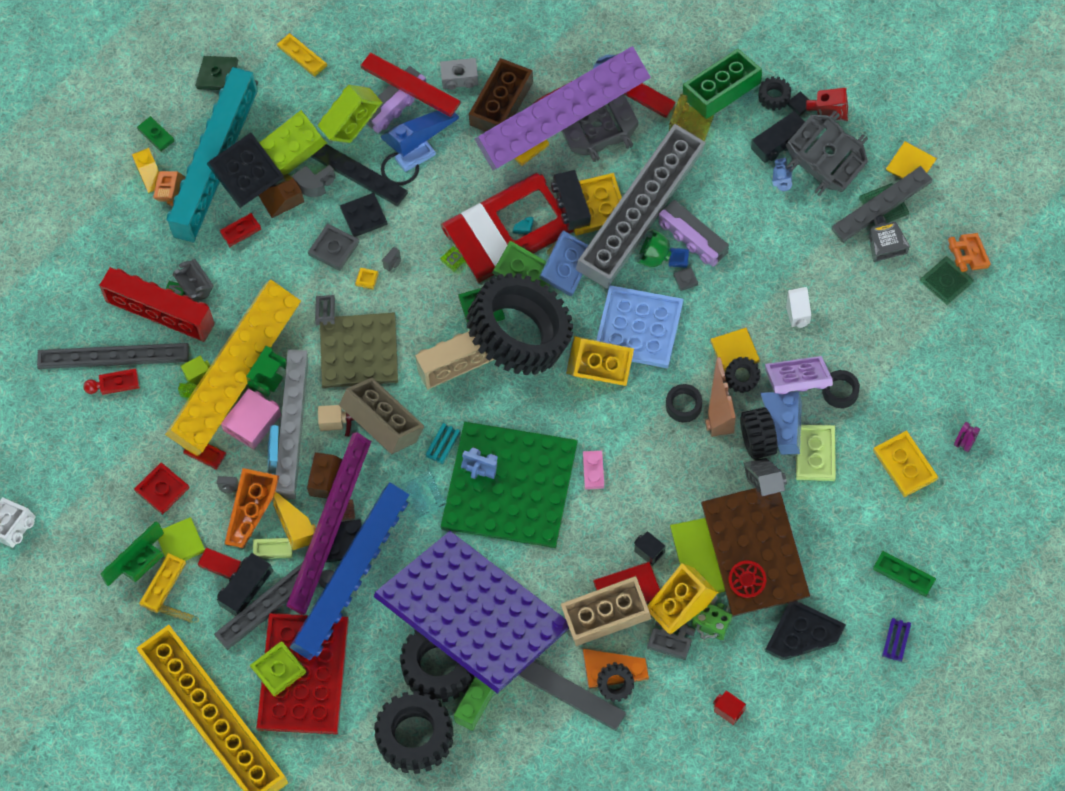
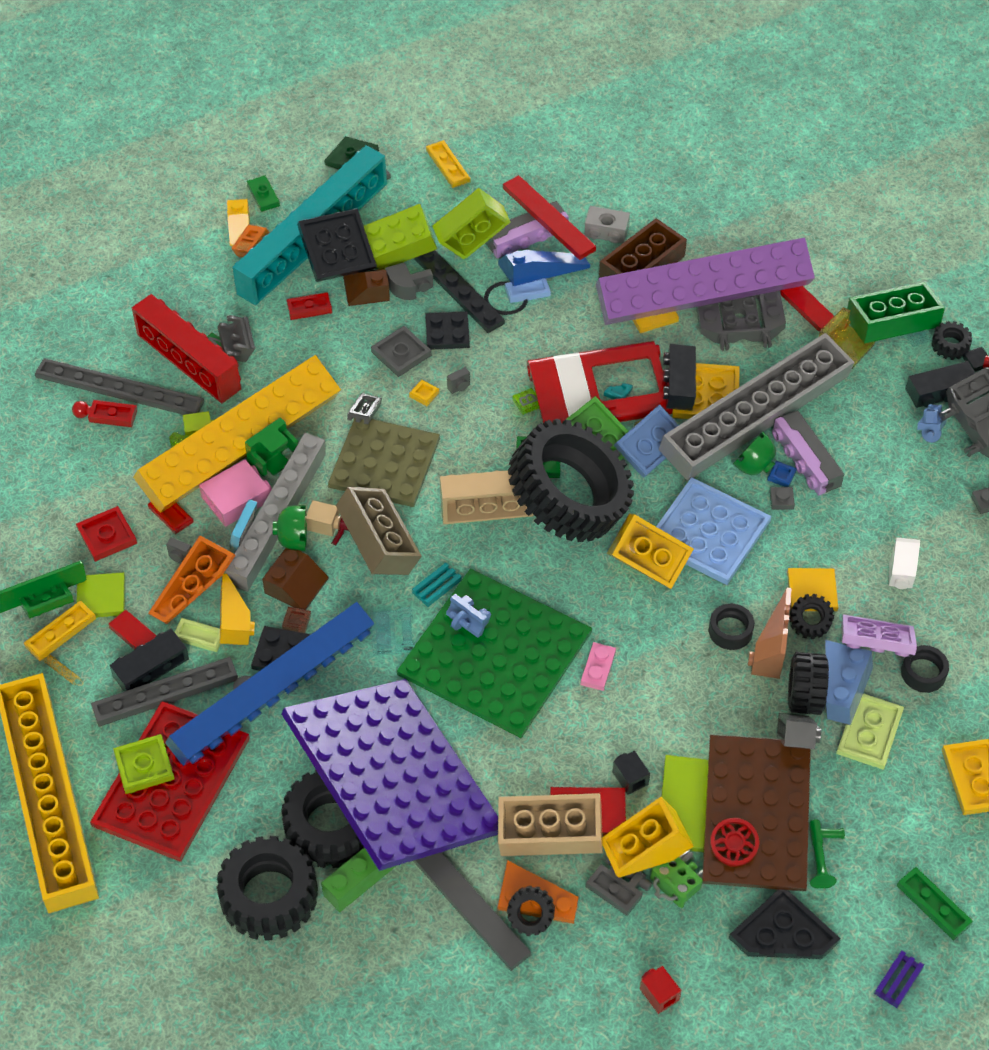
camera: 15 degrees right, 10 degrees down
(313, 437) = (292, 528): none -> green cylinder
(328, 524) = (268, 626): magenta plate -> none
(818, 582) = (822, 878): none -> green piece

